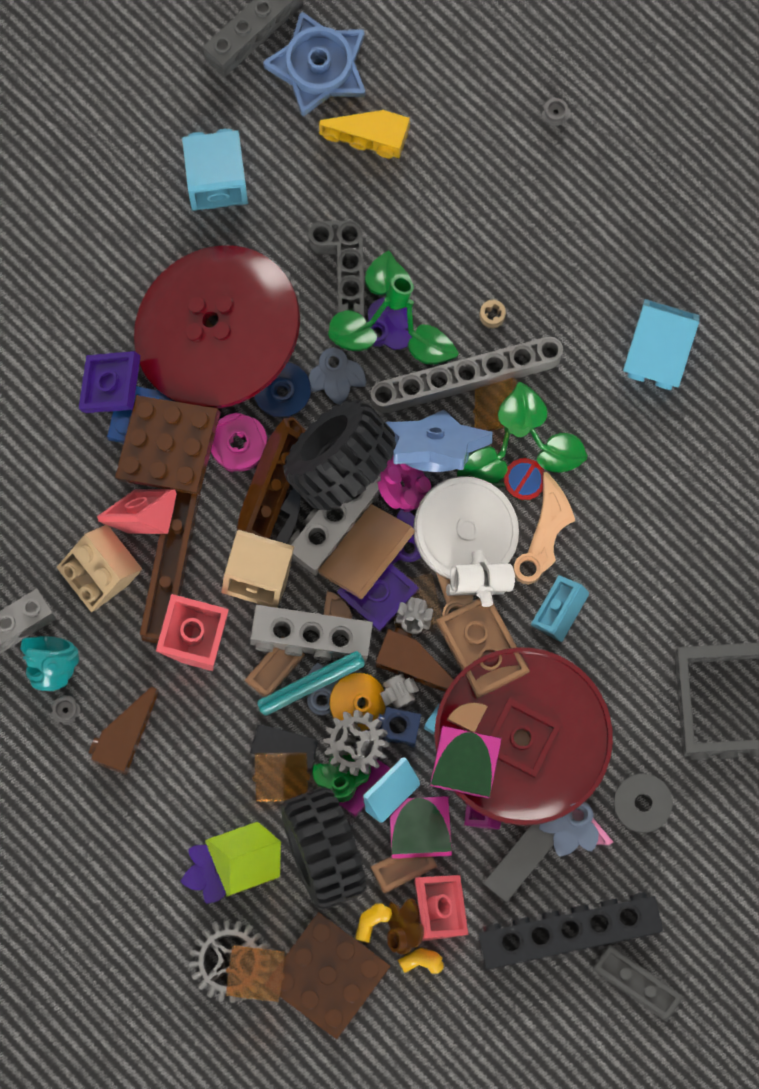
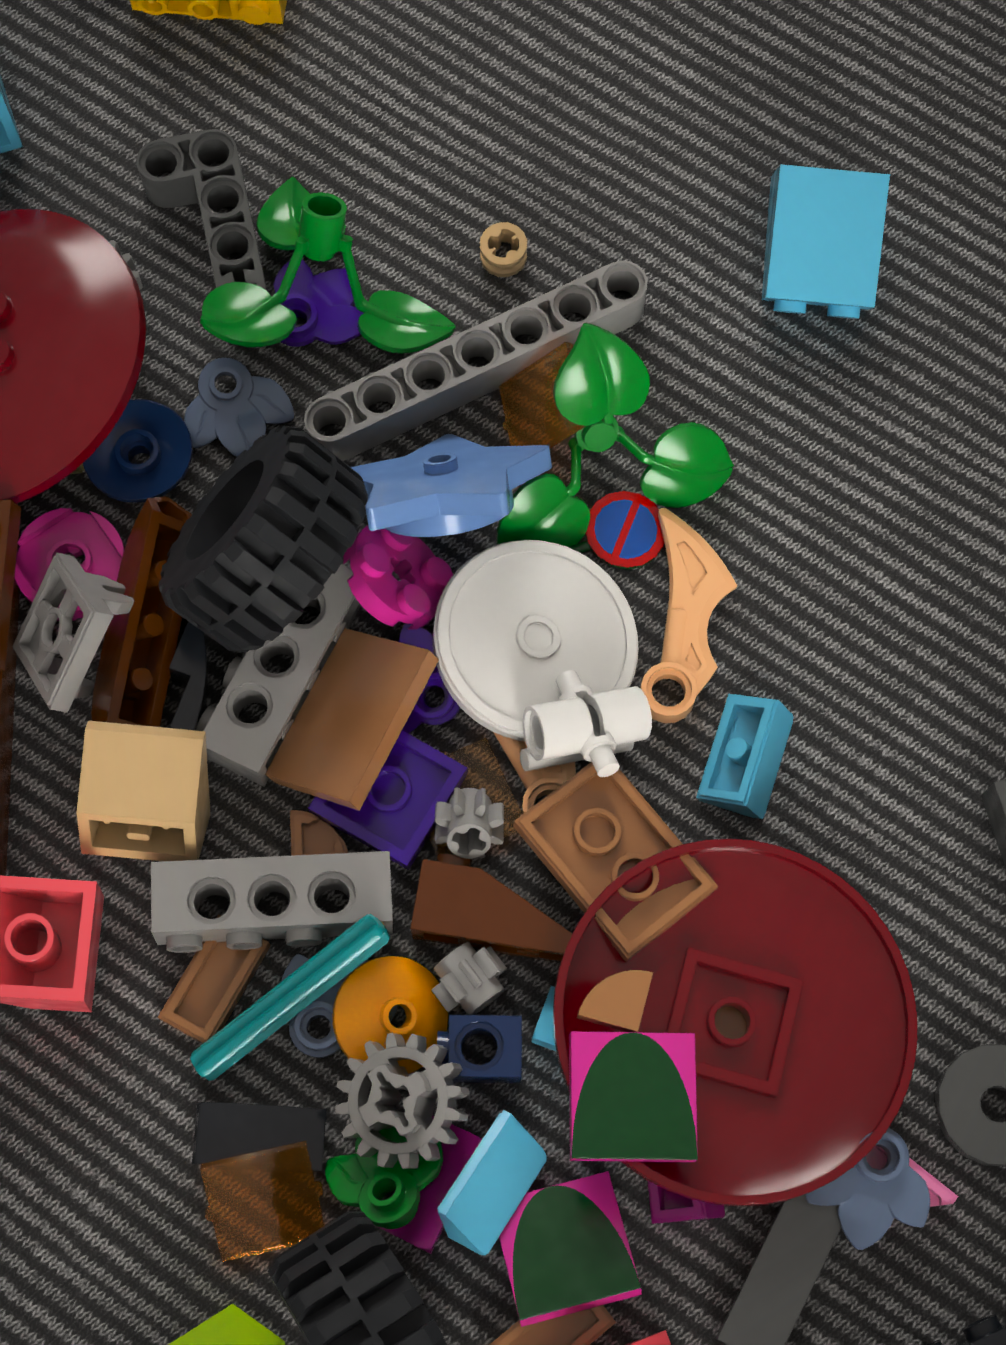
camera: 10 degrees left, 5 degrees down
(229, 498) = (71, 587): none -> light grey piece

